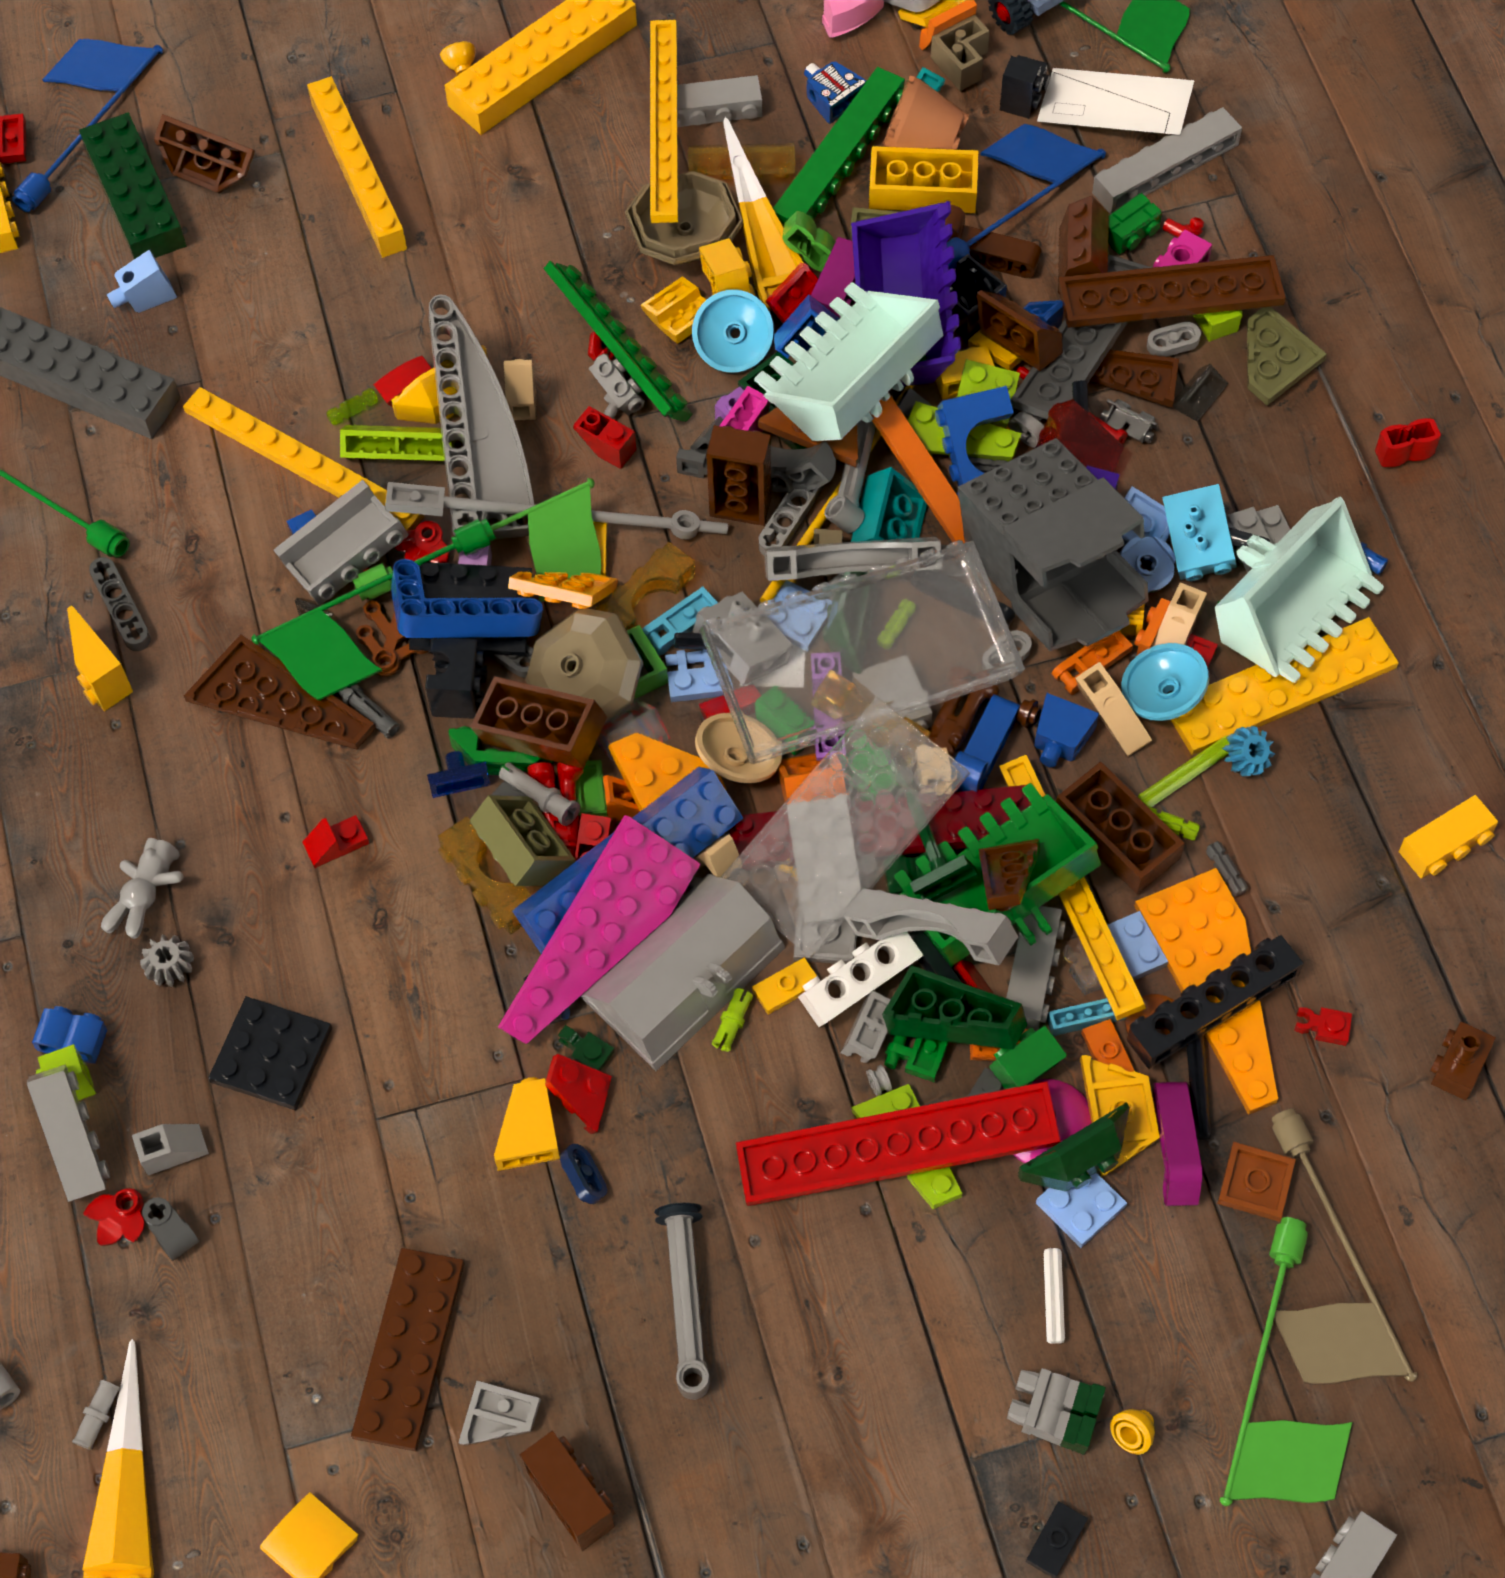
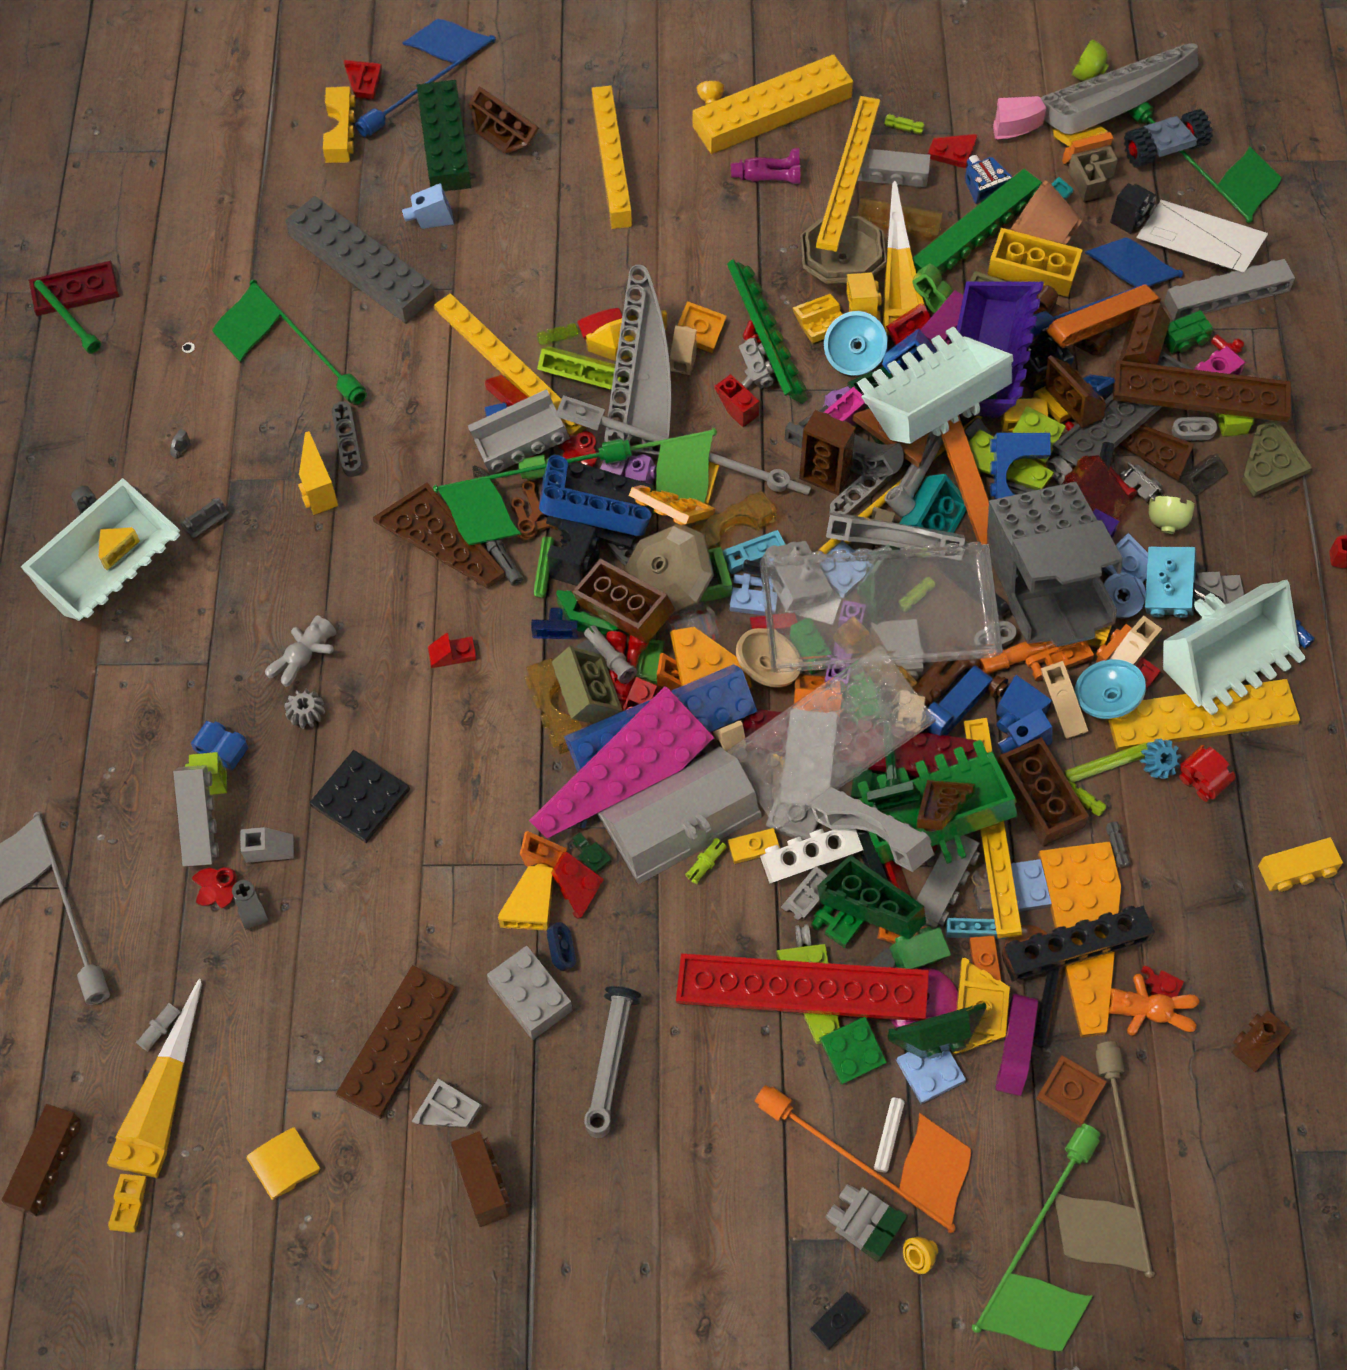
camera: 15 degrees right, 0 degrees up
(306, 494) = (504, 390): none -> red slope
(421, 705) = (543, 571): none -> bright green axle
(510, 551) = (641, 469): none -> medium lavender brick
(523, 1061) = (540, 850): none -> orange slope
(534, 346) = (706, 322): none -> light orange plate
(552, 138) = (761, 168): none -> magenta piece
(560, 1242) = (529, 992): none -> light grey brick
(713, 44) = (904, 124): none -> lime axle
(782, 62) = (953, 149): none -> red wing
(980, 1204) = (852, 1050): none -> green plate
(1025, 227) = (1101, 316): none -> orange beam
(1036, 669) = (1013, 655): none -> orange piece
(1079, 758) = (1027, 730): none -> blue torso
(1117, 1322) = (931, 1169): none -> orange flag
(1175, 450) = (1170, 513): none -> yellowish green cylinder
(1308, 754) = (1206, 772): none -> red brick
(1327, 1054) = (1156, 1007): none -> orange animal

